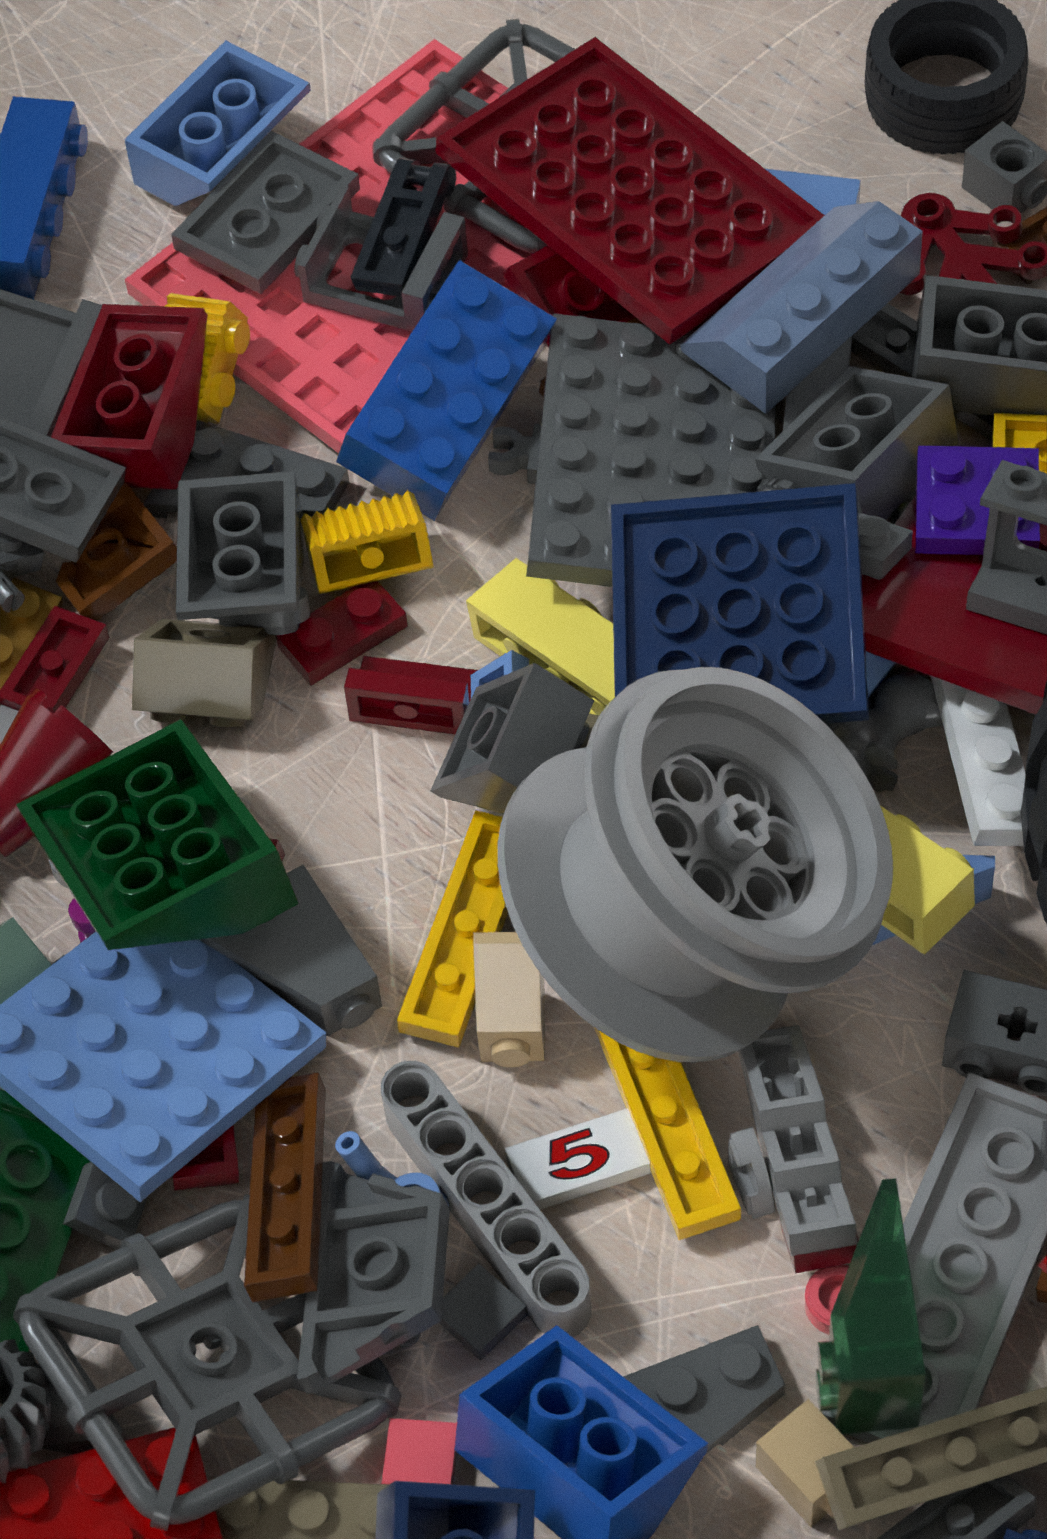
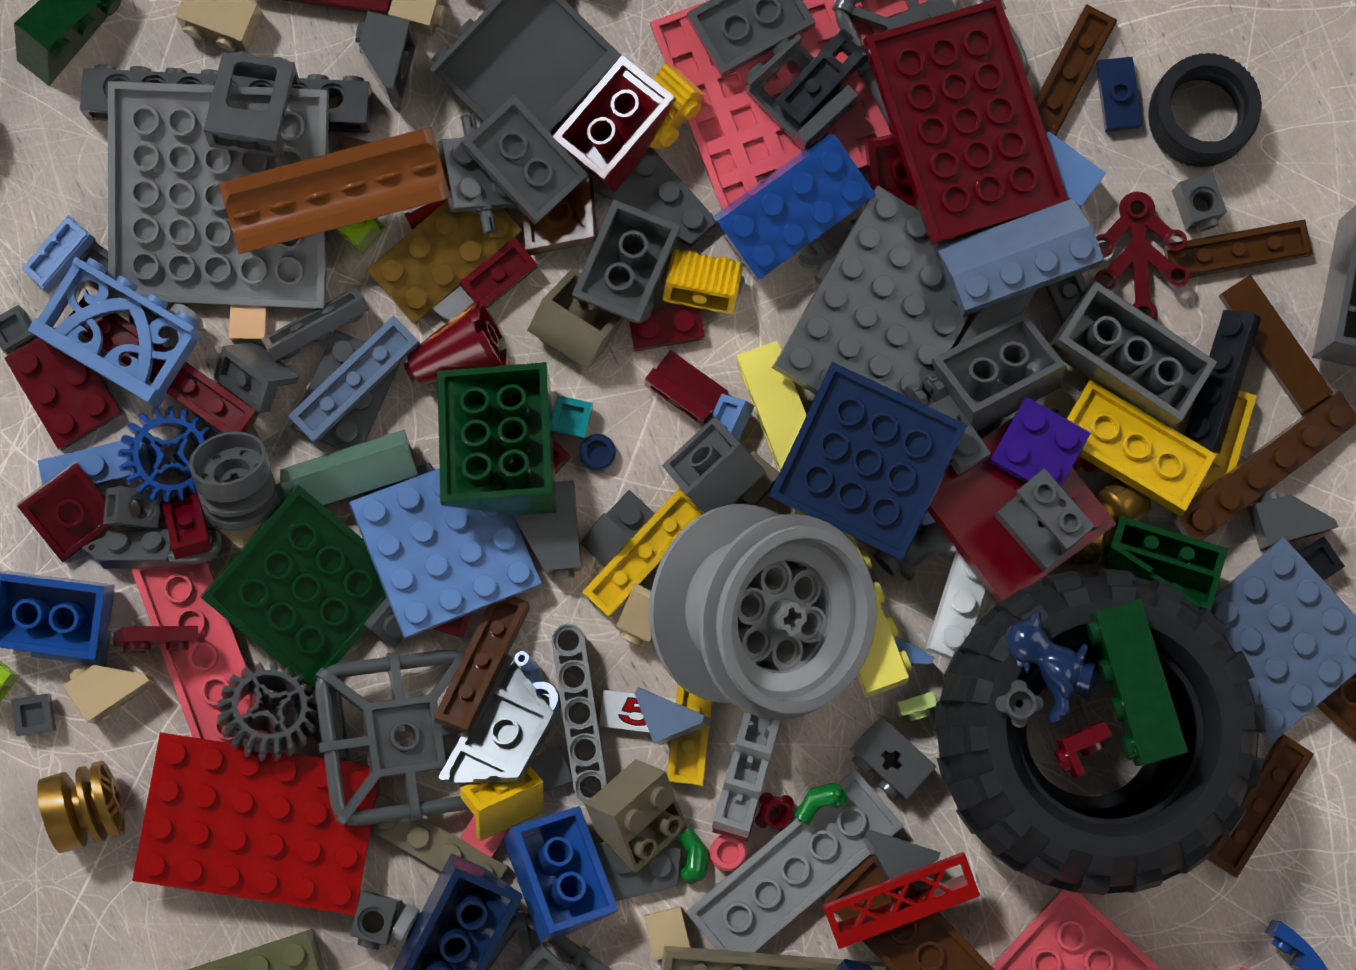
camera: 20 degrees right, 25 degrees up
(264, 795) = (571, 417): none -> teal plate
(323, 833) = (597, 452): none -> dark blue tile
(402, 917) = (616, 528): none -> dark grey slope
(424, 1378) = (503, 804): none -> yellow panel
(633, 1119) = (668, 719): none -> sand blue slope
(658, 1292) = (637, 814): none -> dark tan slope
(741, 91) = (1073, 67): none -> reddish brown tile
(750, 1173) = (718, 767): light grey tile -> none
(792, 1326) = (697, 858): none -> green arm
(820, 110) = (1118, 94): none -> dark blue plate
(864, 1186) = (781, 818): none -> dark red plate
(874, 1355) = (723, 900): clear green slope -> none
(949, 1117) = (819, 797): none -> green arm
(1008, 943) = (917, 706): none -> yellowish green plate

